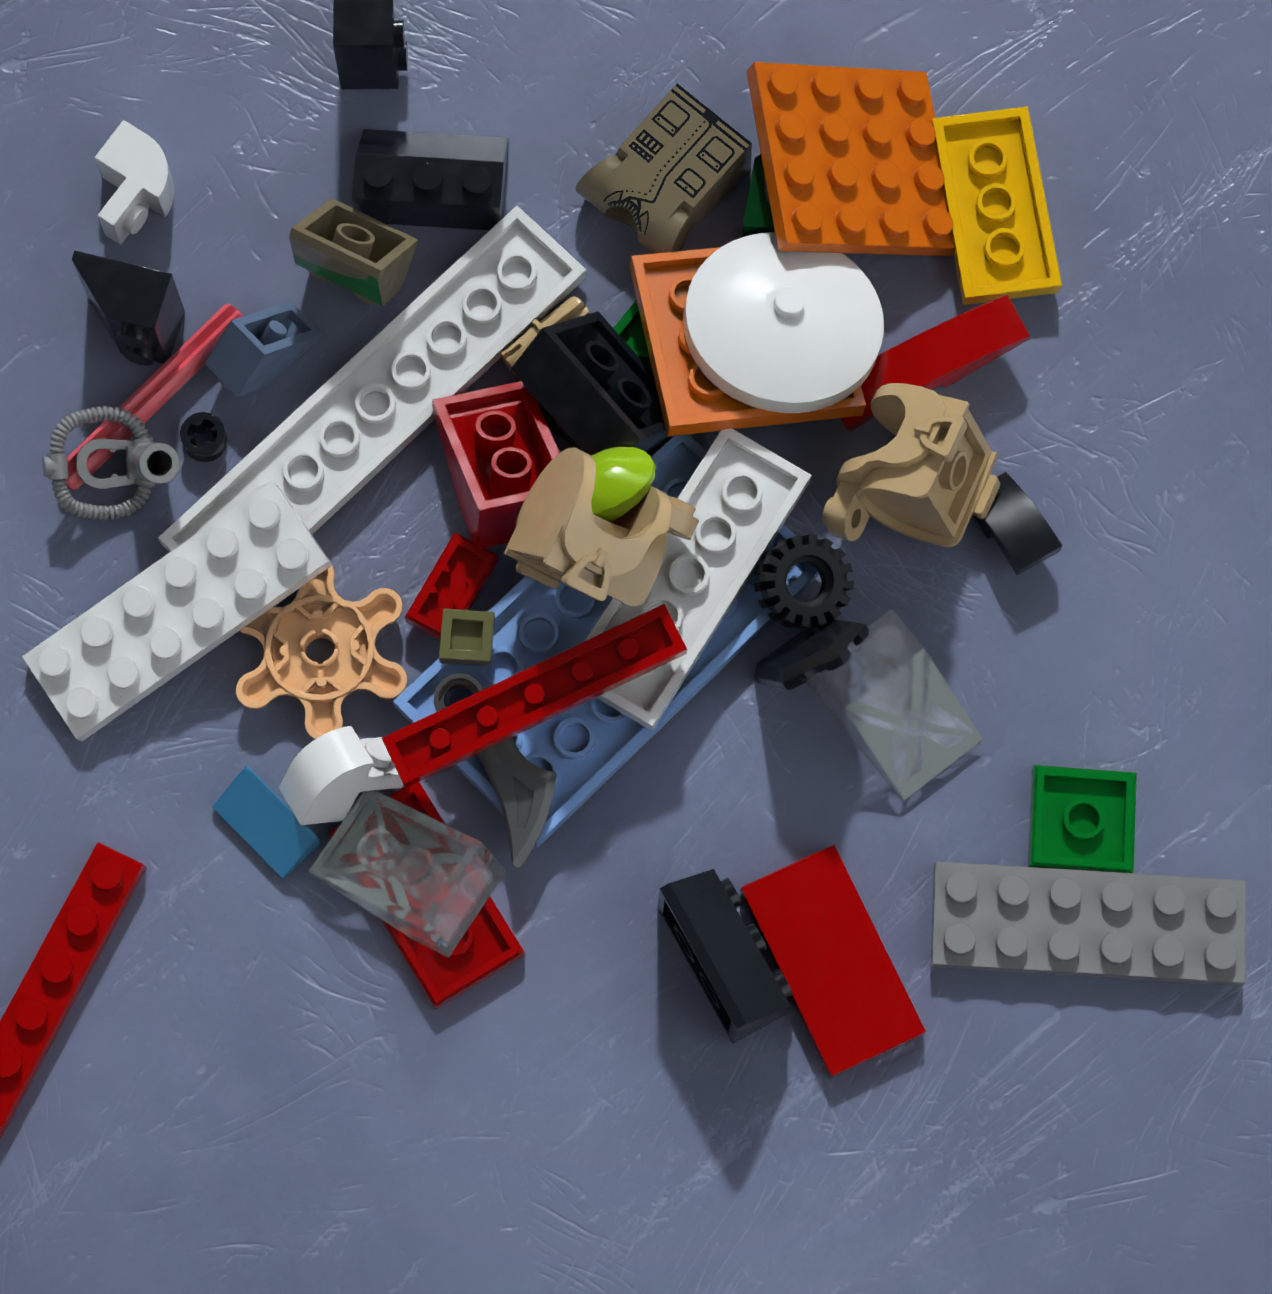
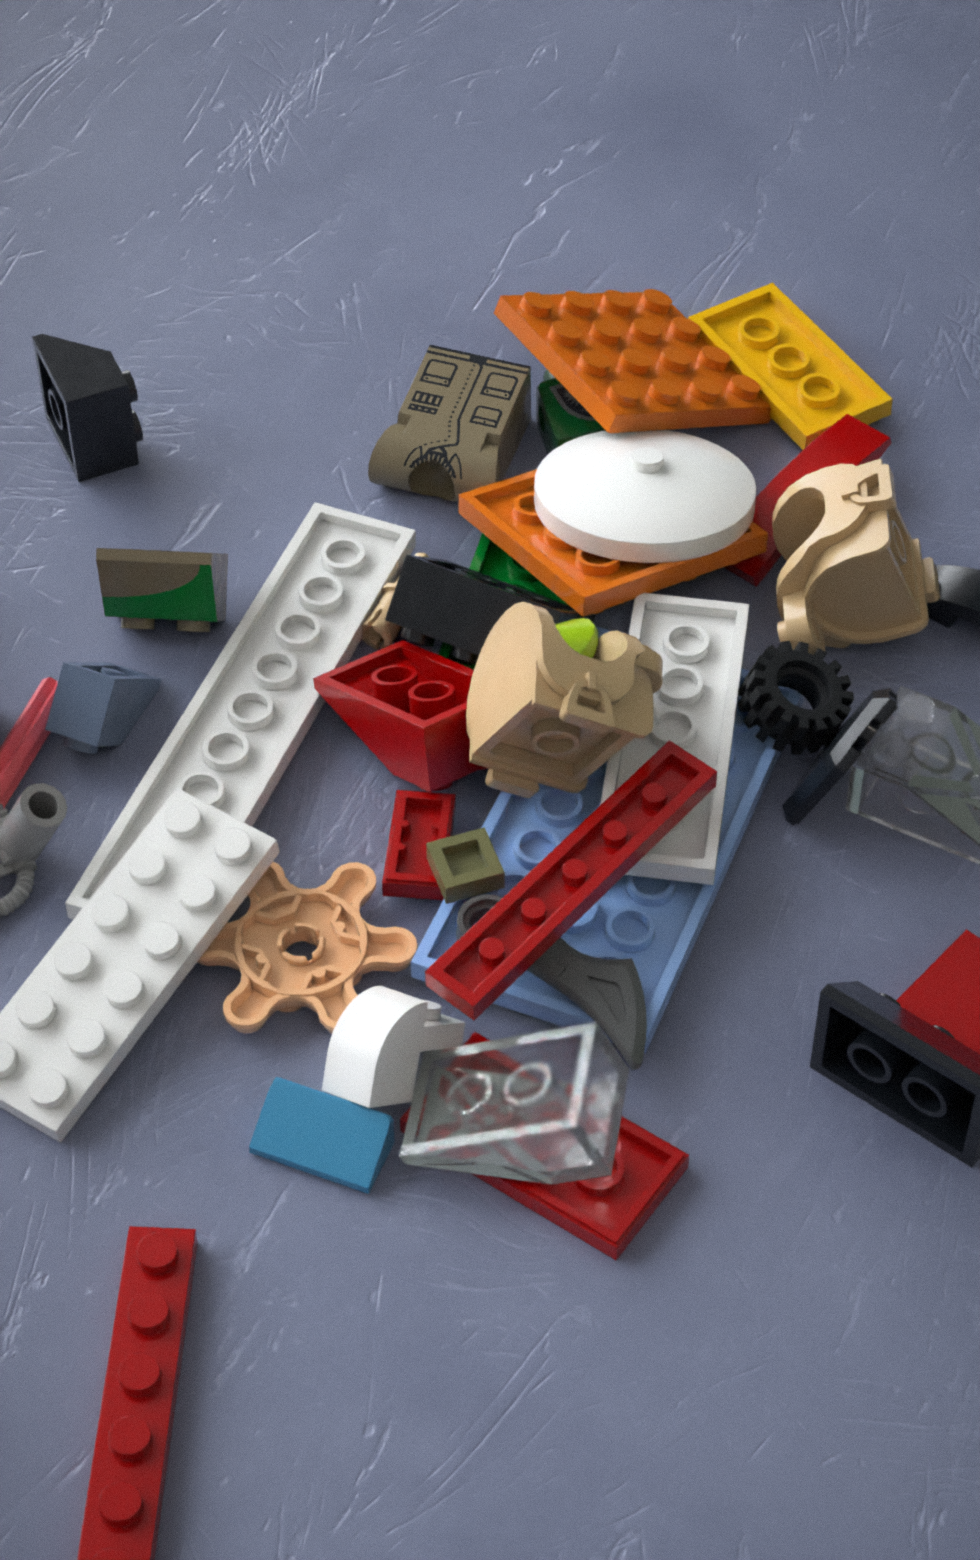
camera: 20 degrees left, 25 degrees down
(210, 450) = (87, 808): black bush -> none
(431, 179) = (222, 513): black slope -> none

